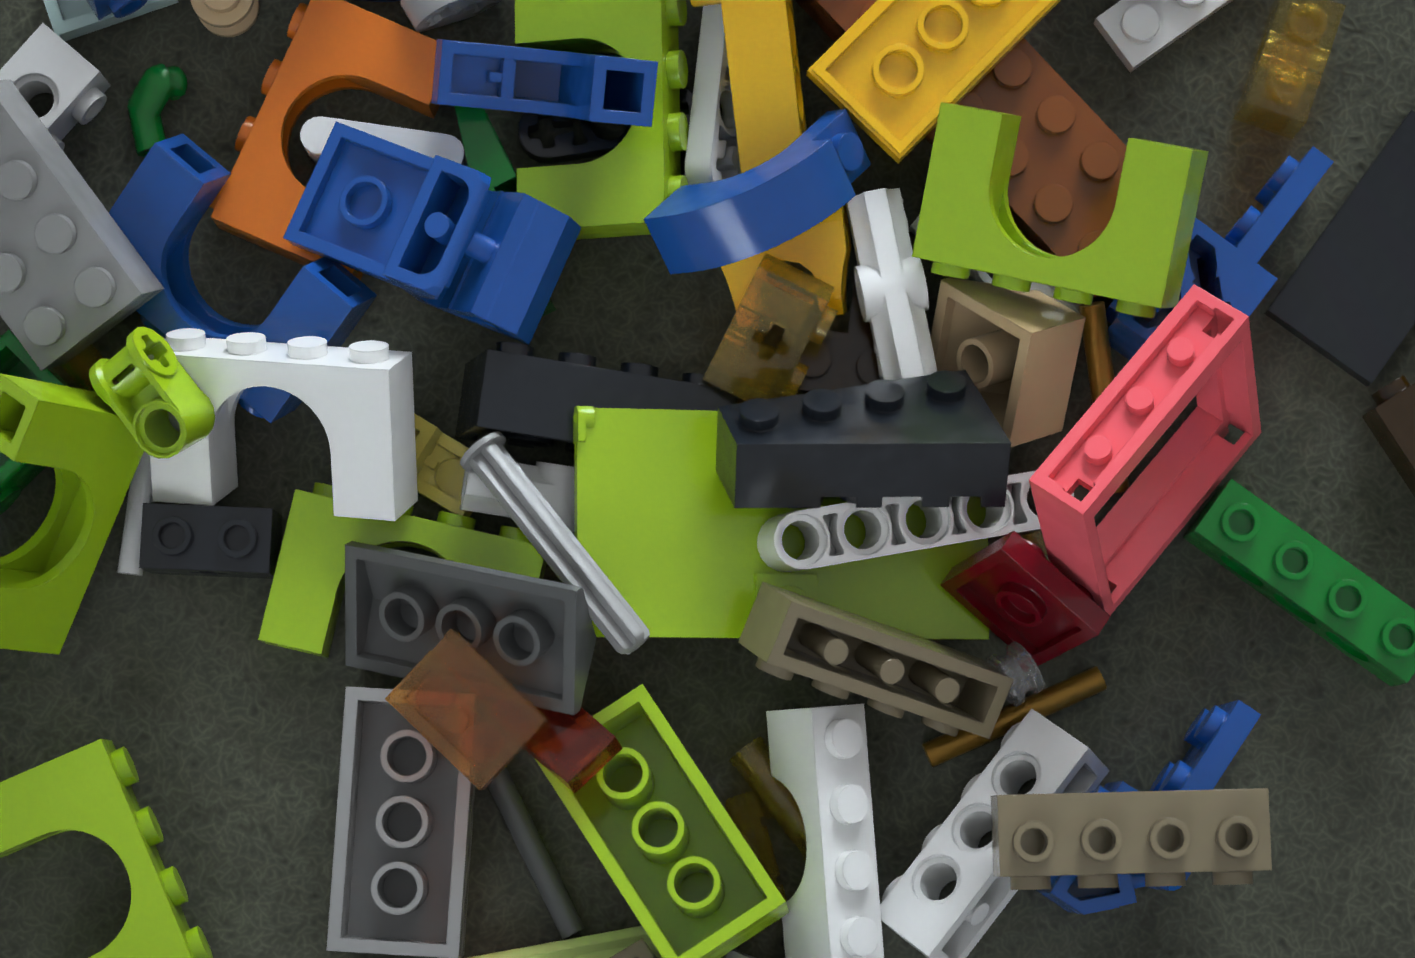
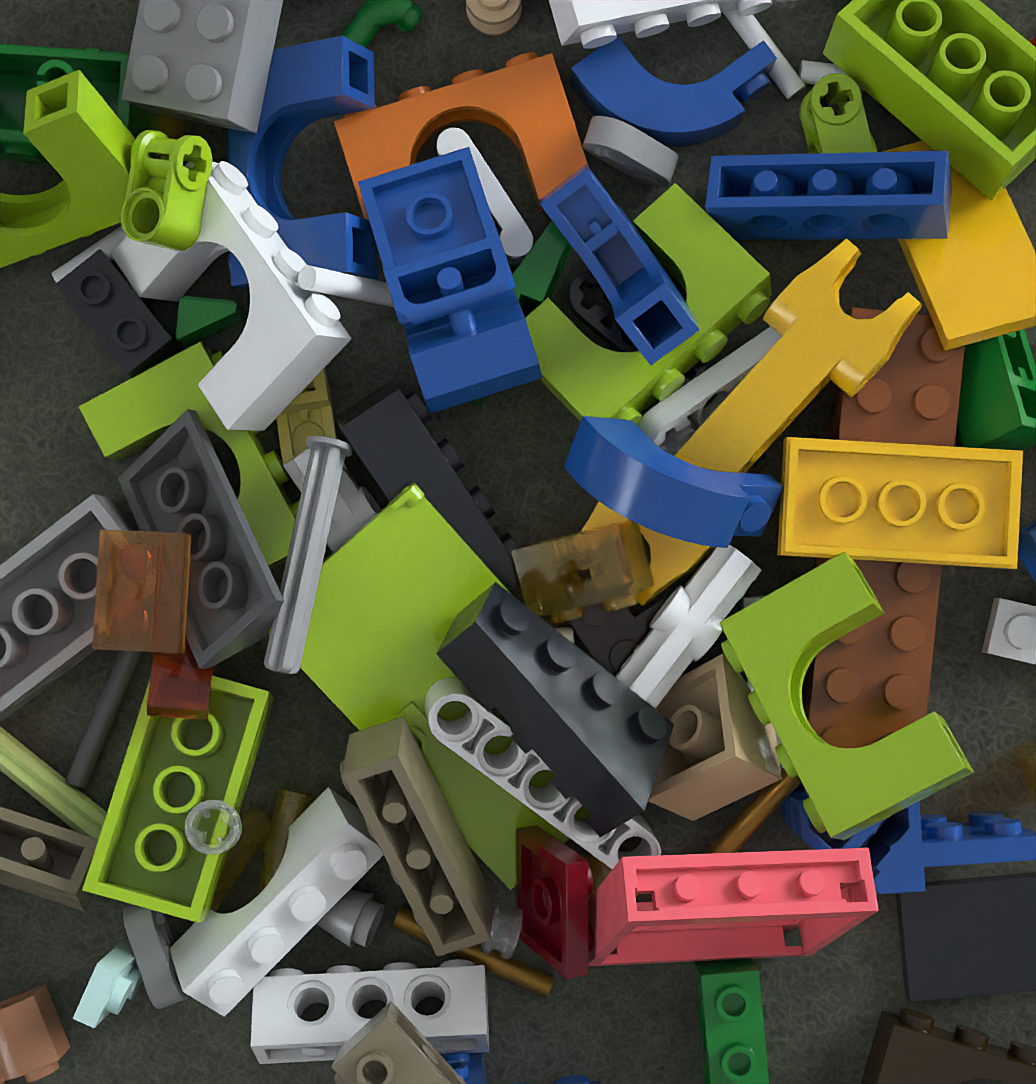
camera: 50 degrees right, 5 degrees up
(275, 469) = (205, 317): none -> green slope
(365, 318) = (344, 285): none -> white bar
(721, 799) = (198, 837): none -> clear bush
(896, 790) = (354, 918): none -> light grey cone

